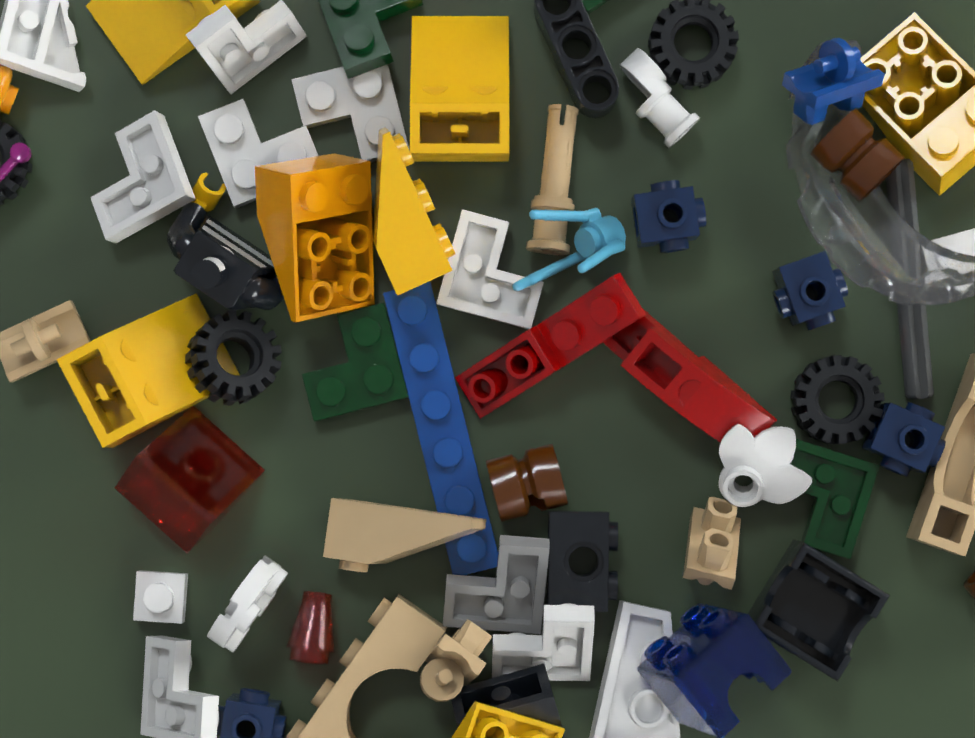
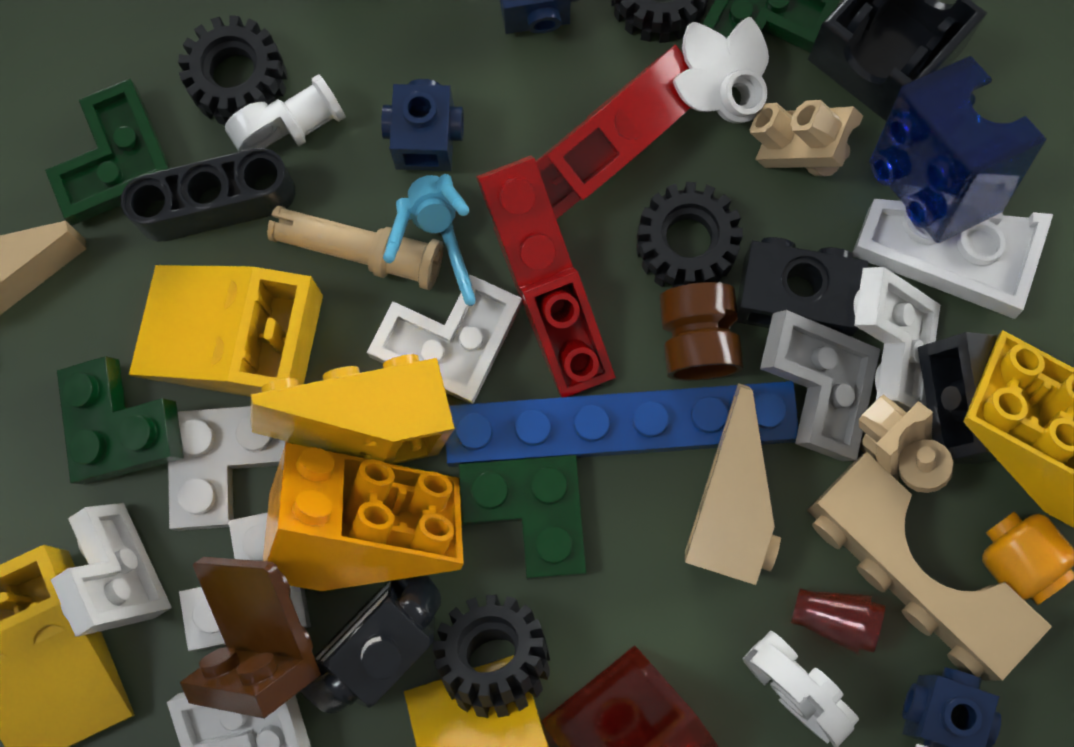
camera: 75 degrees left, 10 degrees down
(200, 180) = (266, 646): none -> reddish brown bracket
(638, 449) = (692, 205): none -> black tyre

